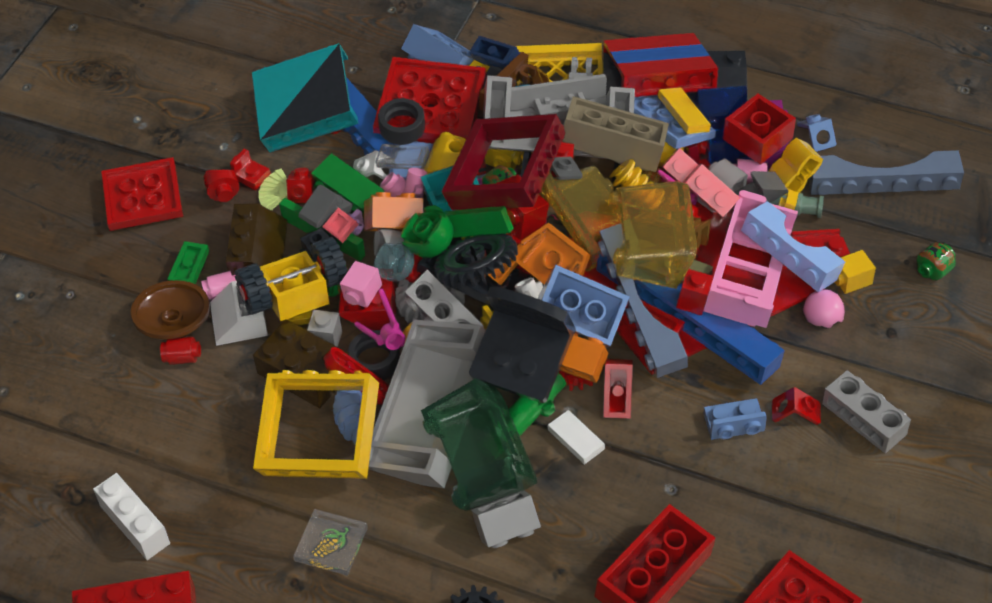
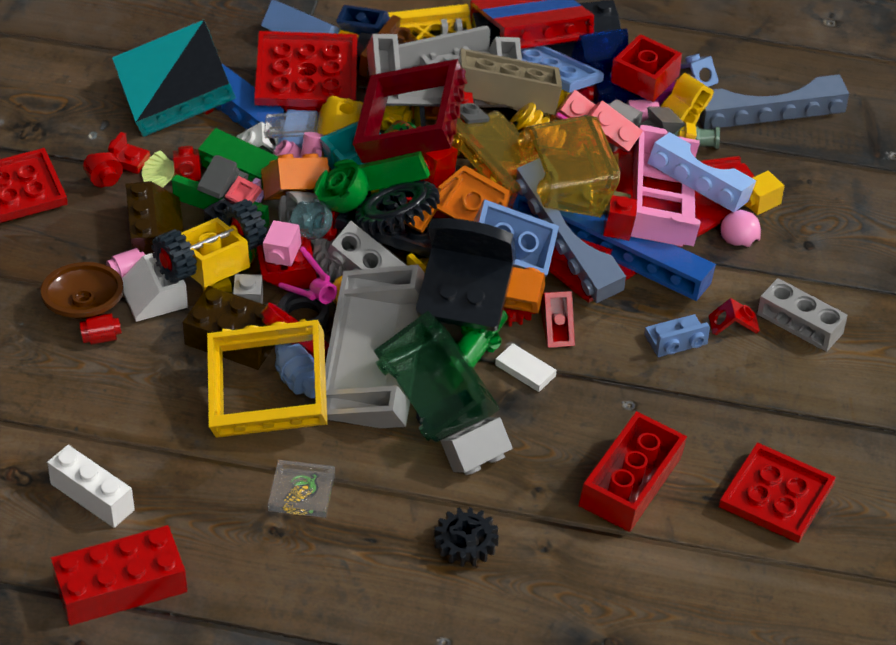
camera: 15 degrees left, 5 degrees down
(189, 262) = (87, 244): green plate -> none
(400, 107) = (285, 76): black tyre -> none
(684, 110) = (568, 57): yellow tile -> none
(936, 260) = (838, 176): green head -> none

